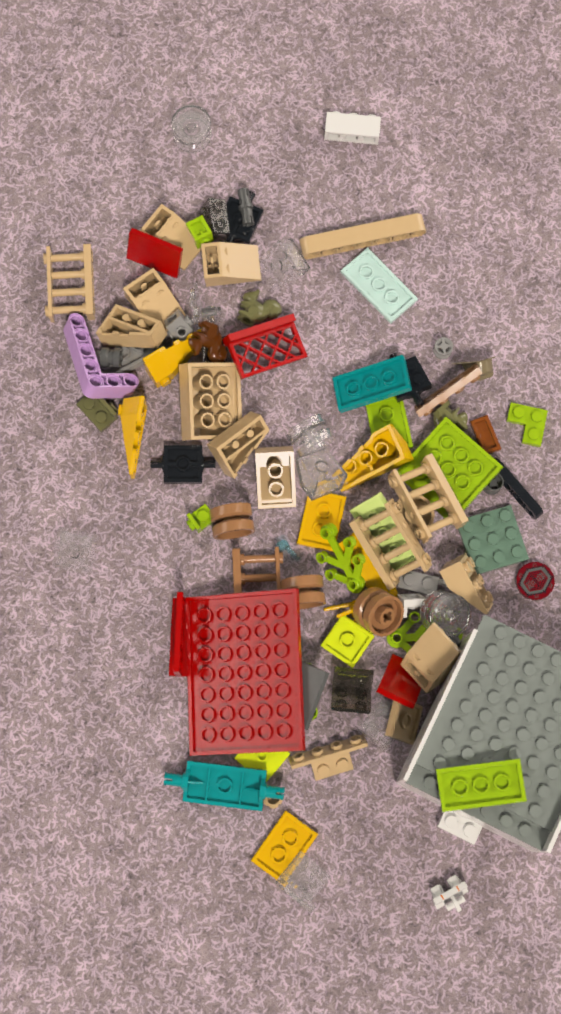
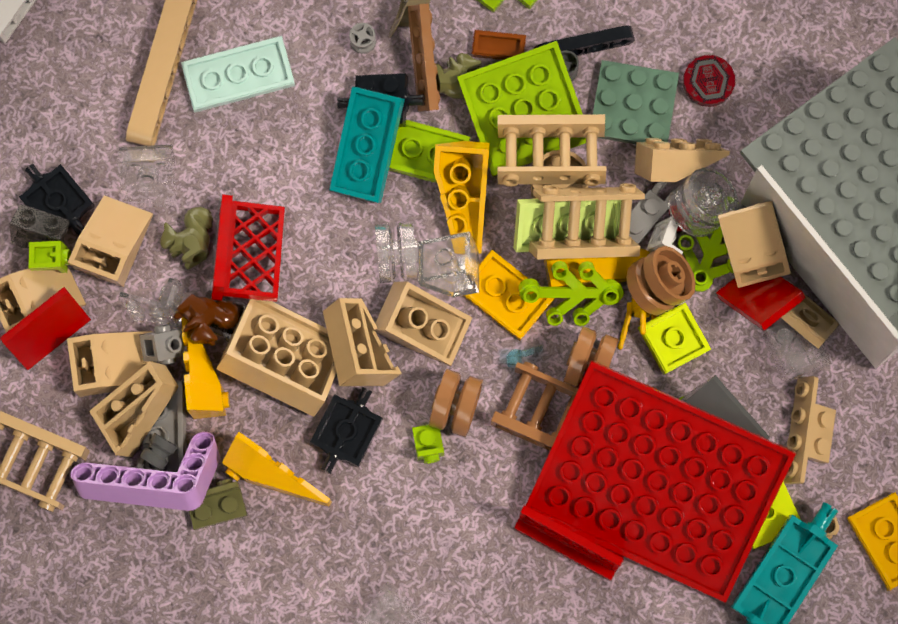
camera: 60 degrees left, 0 degrees up
(245, 207) = (47, 183): dark grey pin -> none
(352, 690) = (741, 362): clear smoke bracket -> none

